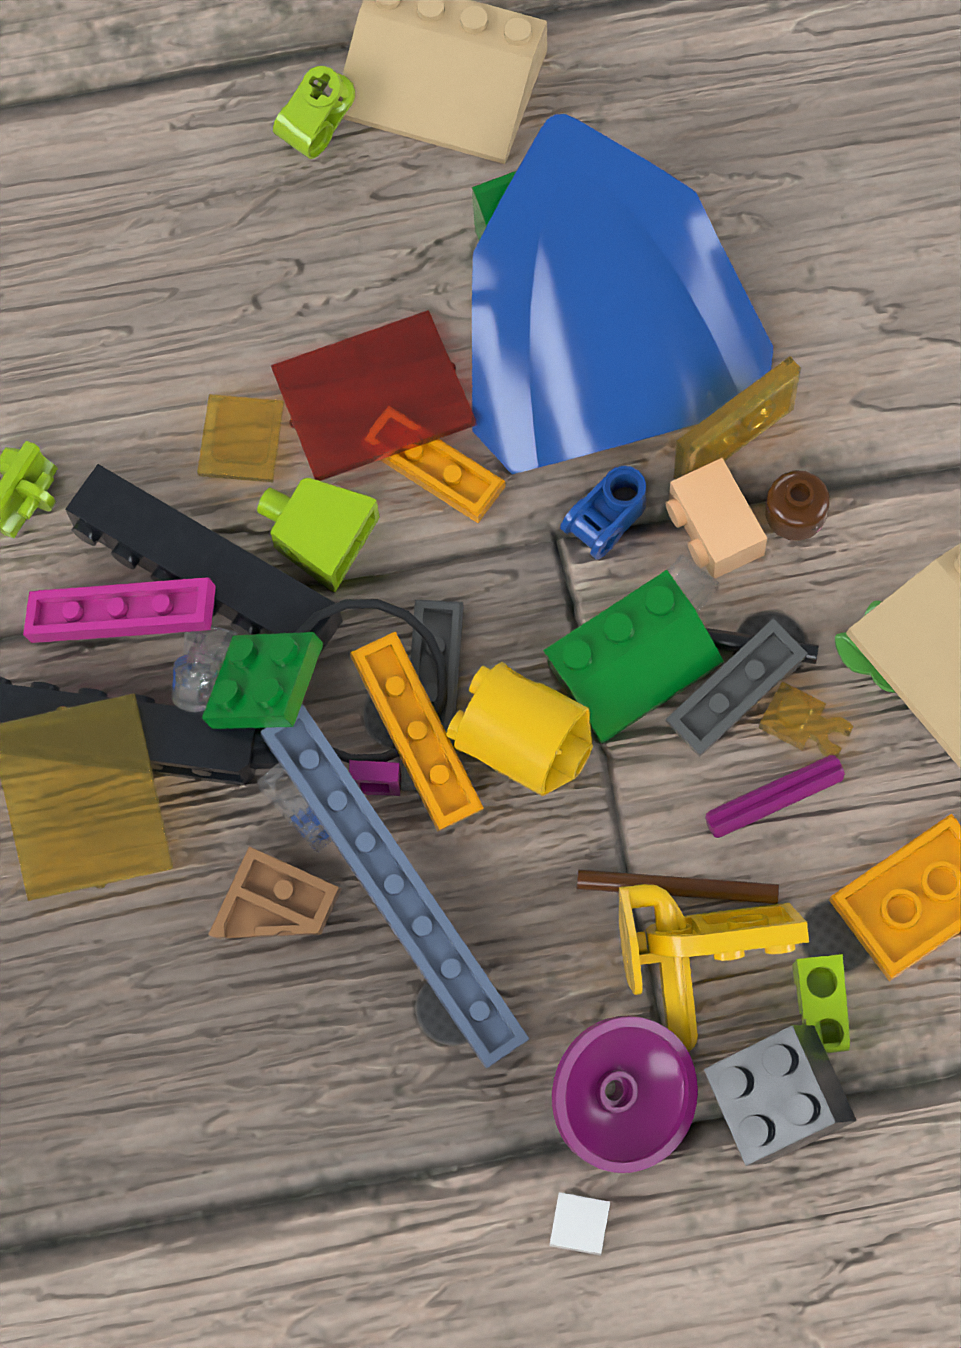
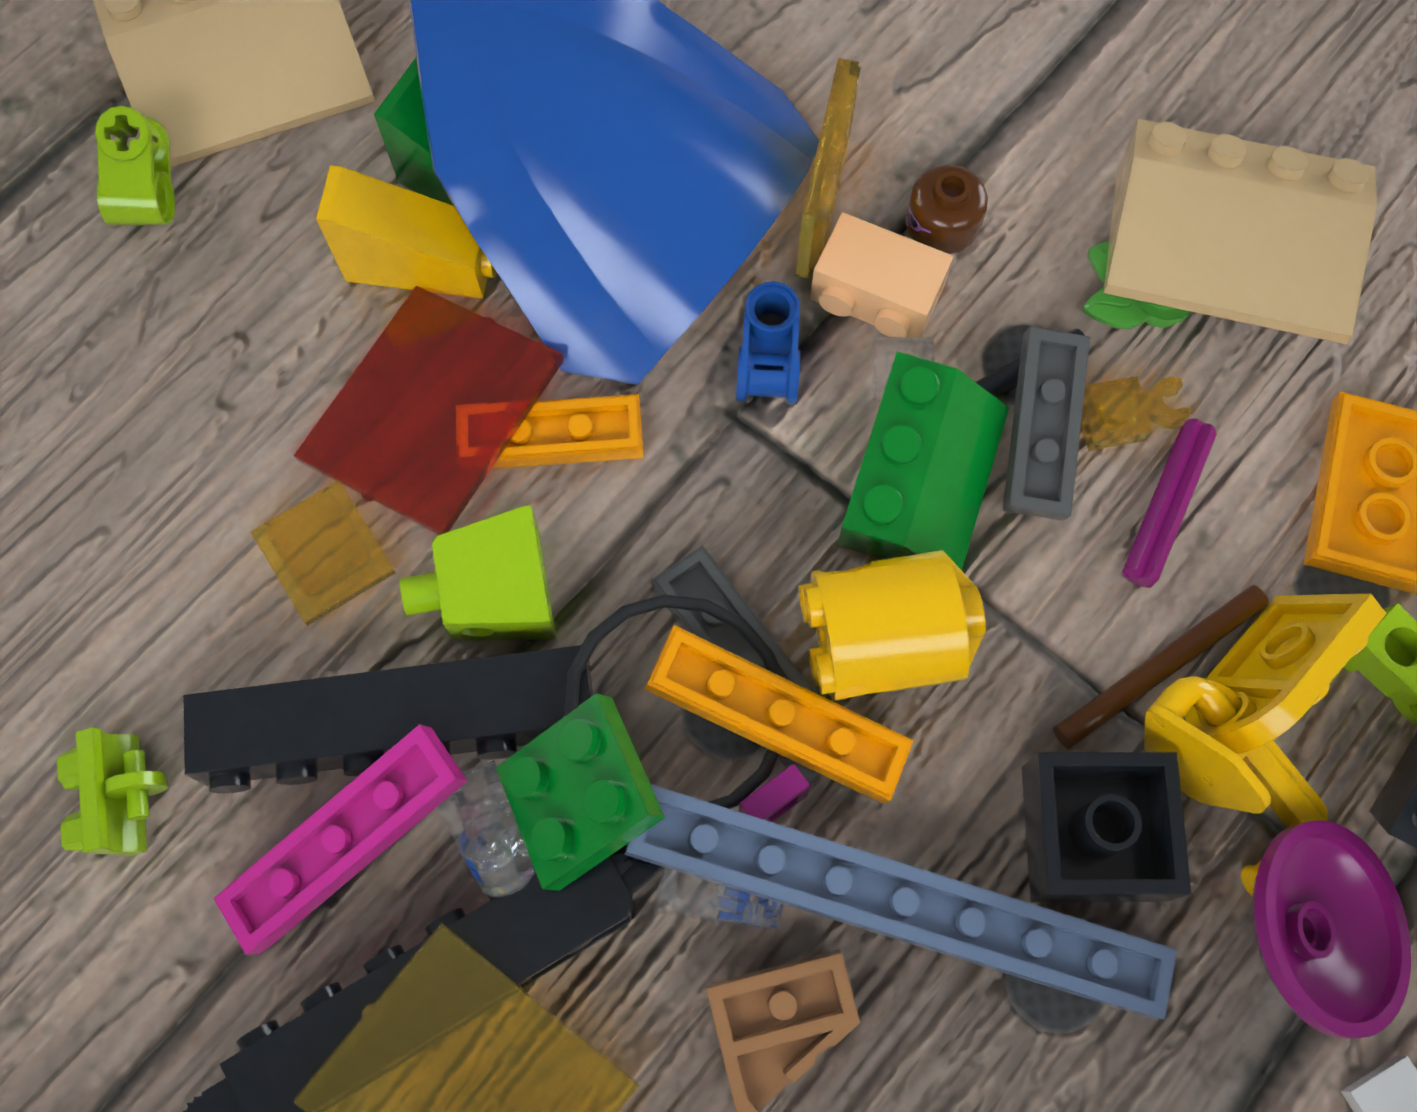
camera: 45 degrees left, 0 degrees up
(432, 271) = (399, 237): none -> yellow slope
(545, 938) = (1105, 827): none -> black brick

